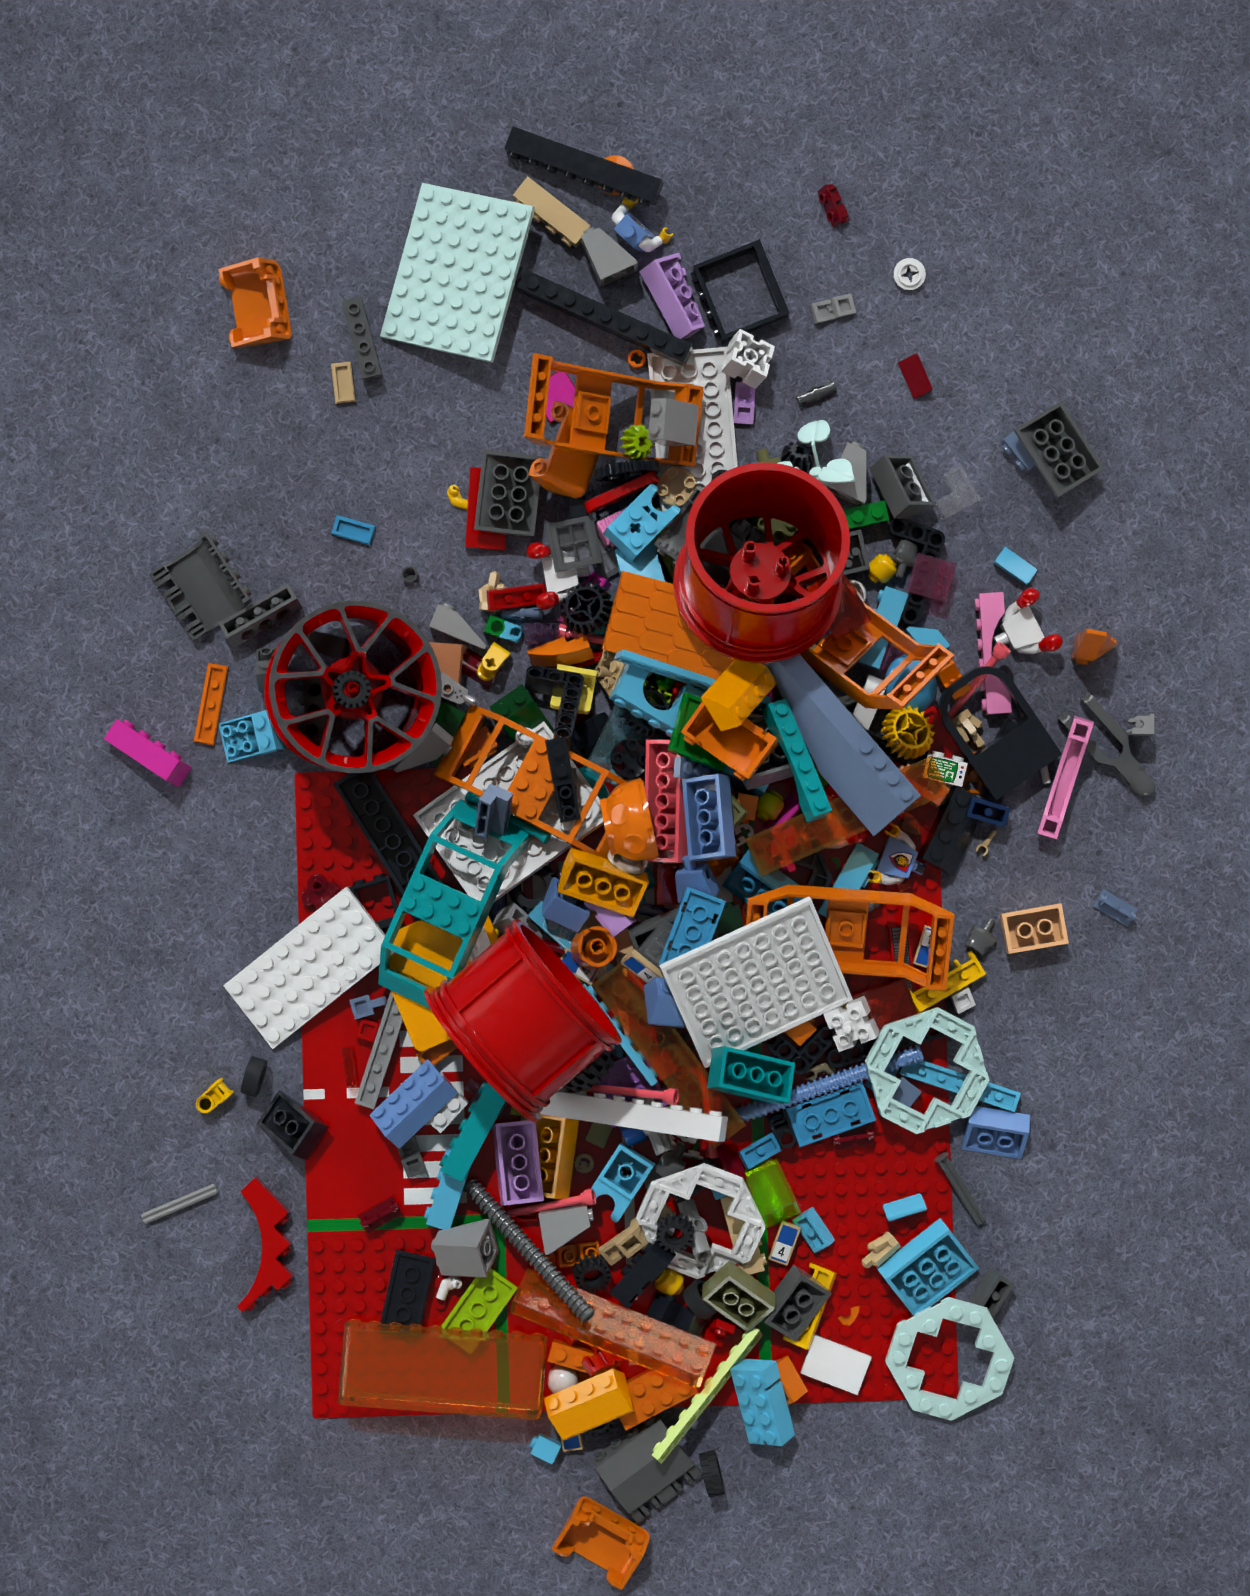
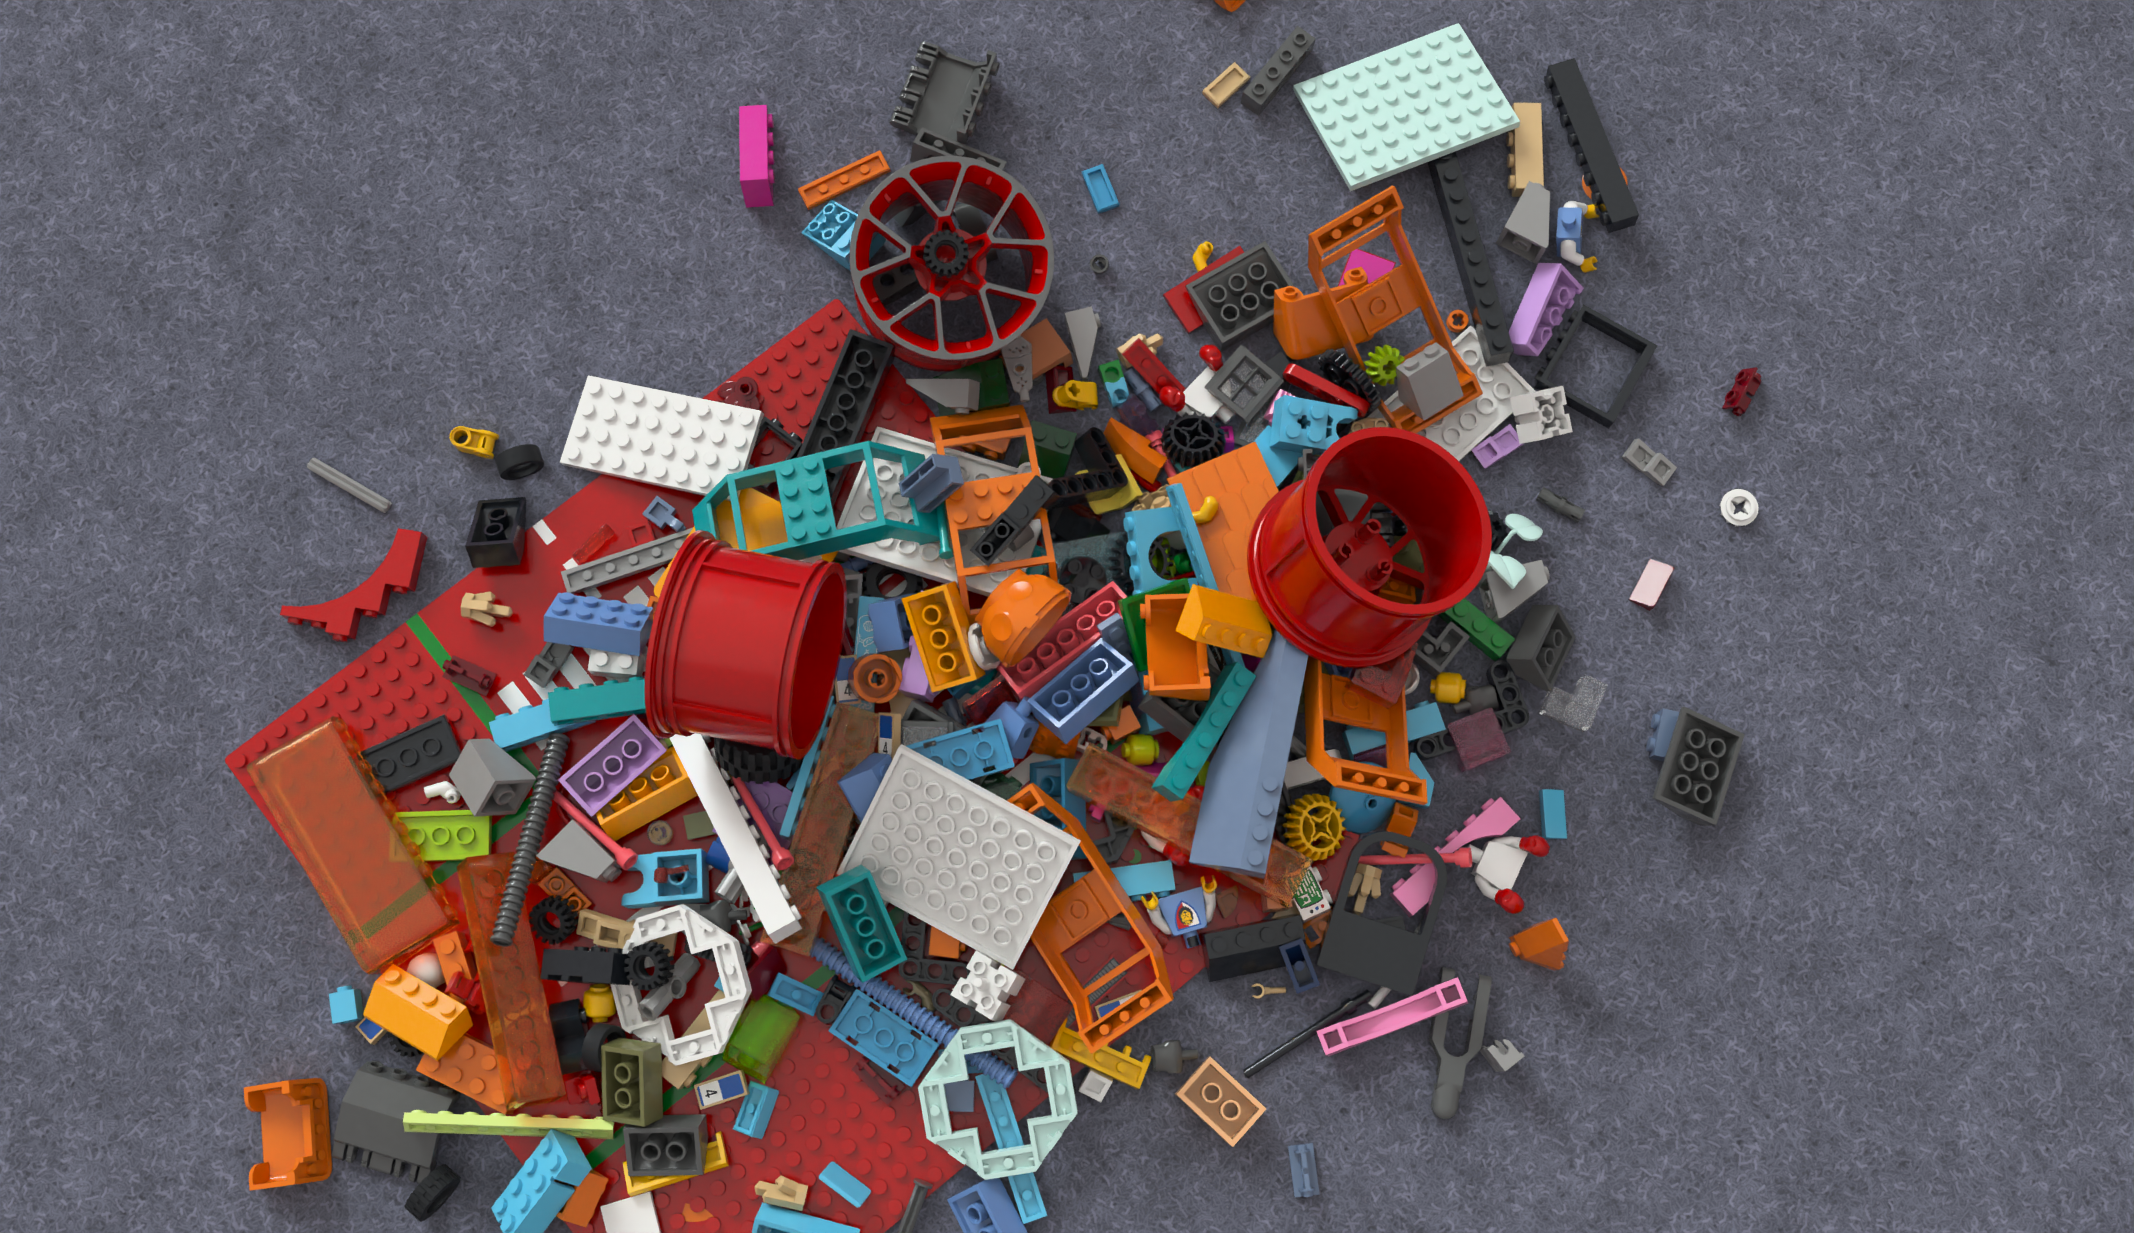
camera: 50 degrees right, 10 degrees down
(336, 1179) = (480, 608): none -> tan rock
(618, 1182) = (661, 873): none -> clear red hand
(648, 642) = (1207, 510): none -> yellow arm
(1036, 799) = (1348, 1007): none -> black bar

